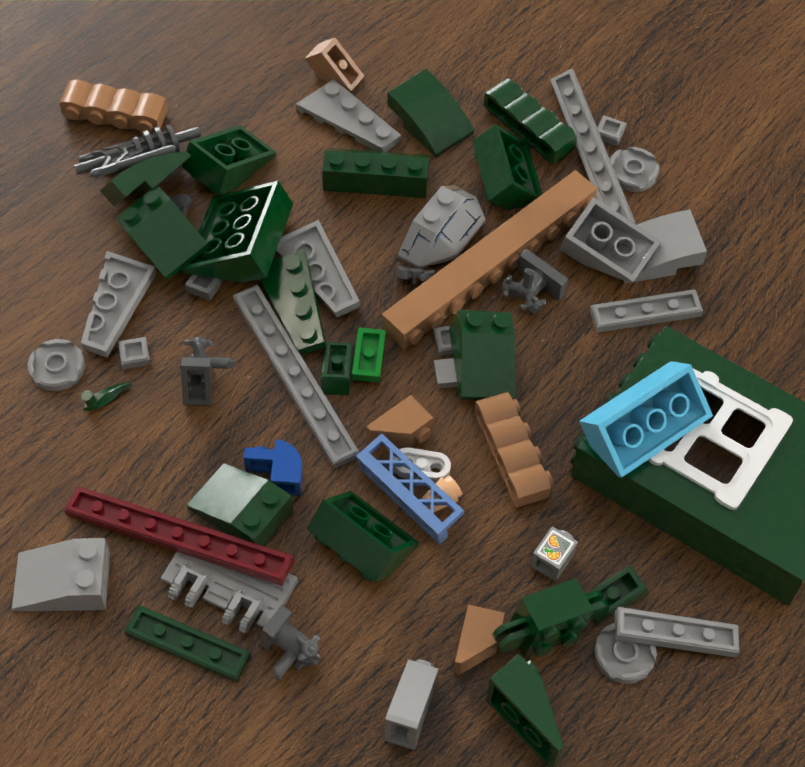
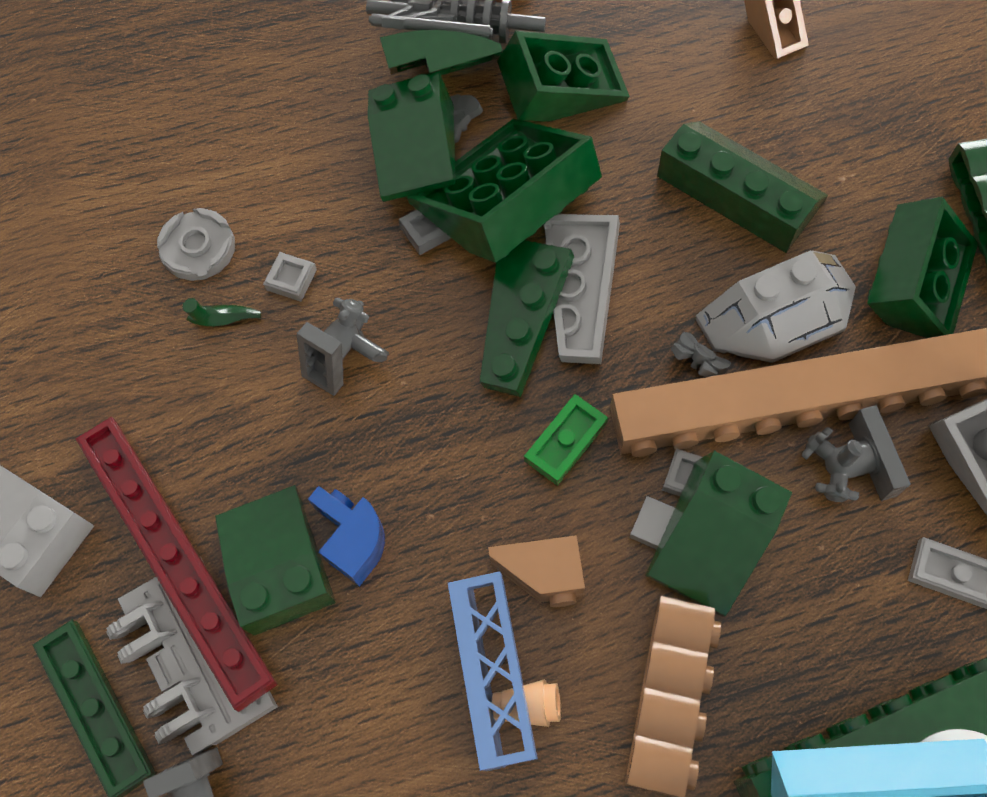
camera: 40 degrees right, 10 degrees up
(116, 299) = (321, 191): light grey wing -> none
(296, 377) = (457, 422): light grey tile -> none
(337, 368) = (515, 433): dark green slope -> none
(349, 116) = (754, 91): light grey wing -> none
(361, 535) = (390, 699): dark green slope -> none
(425, 461) = (537, 640): white plate -> none
(429, 113) = (864, 136): dark green slope -> none

